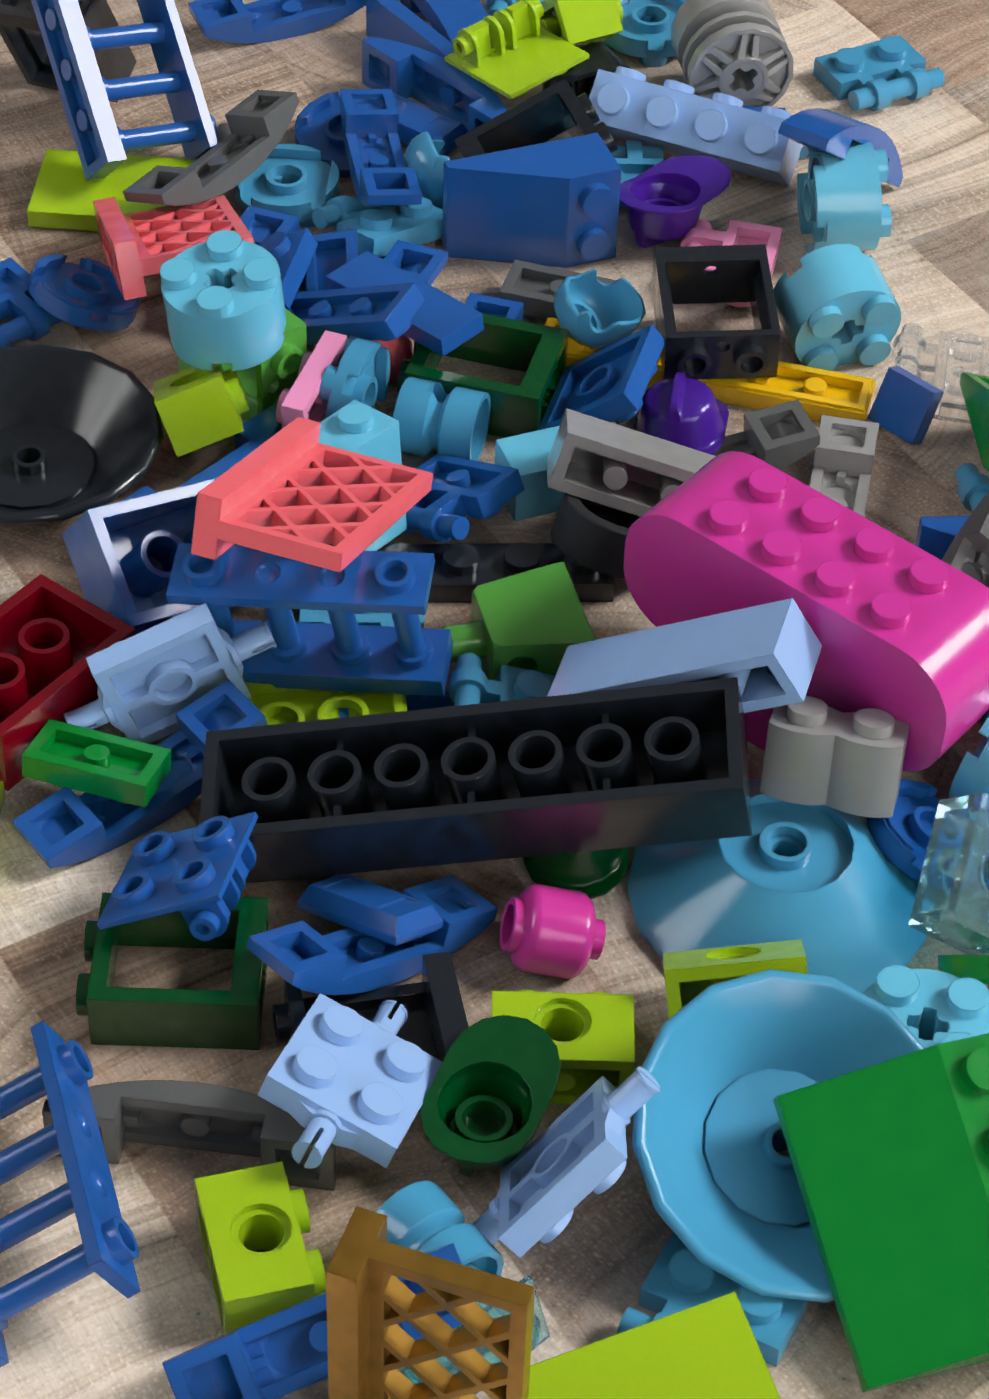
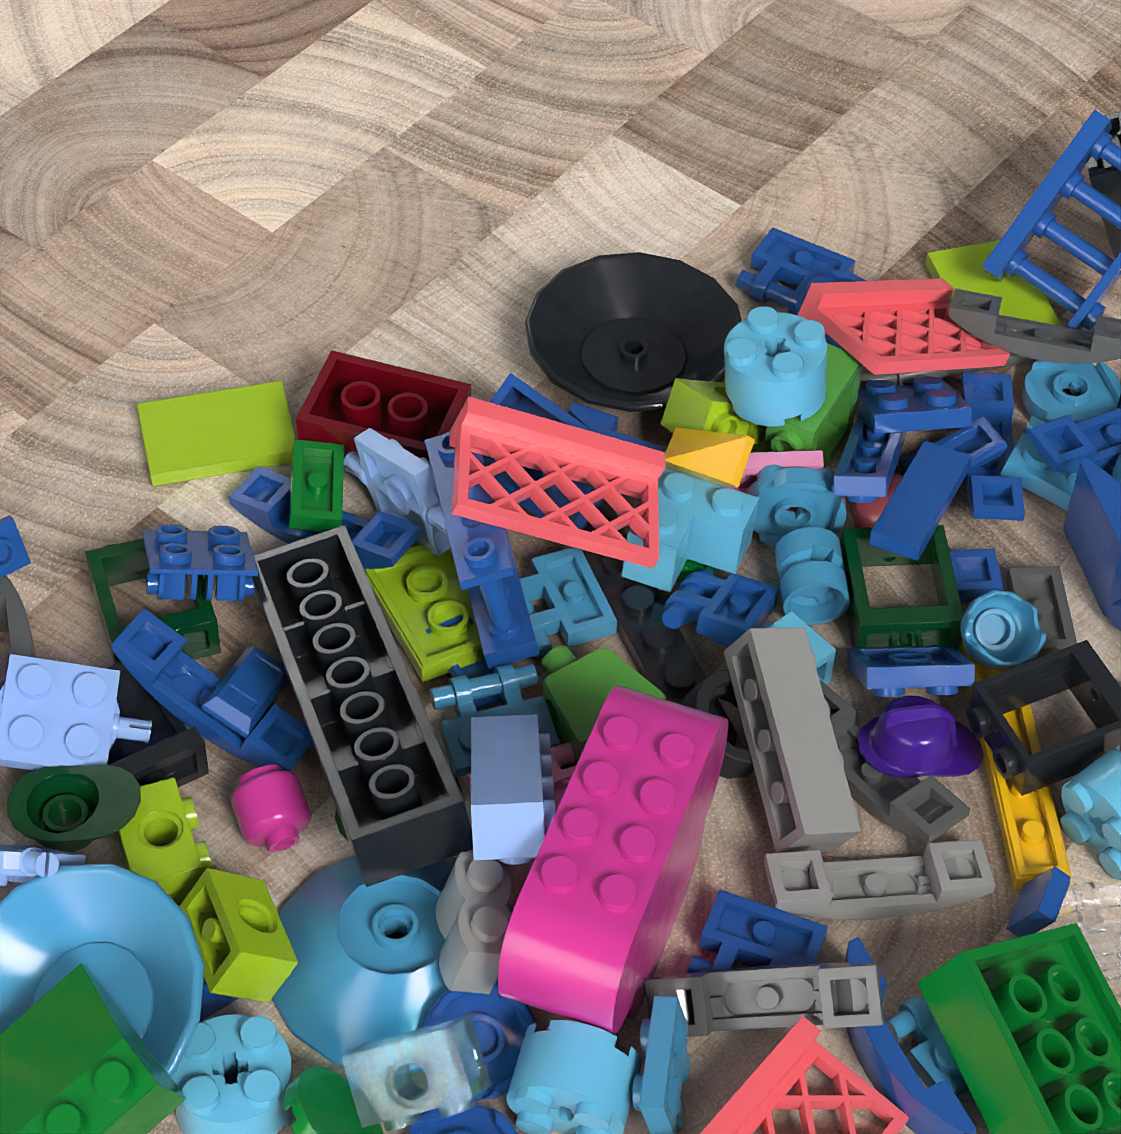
camera: 70 degrees right, 5 degrees up
(294, 394) = (709, 455): none -> yellow slope

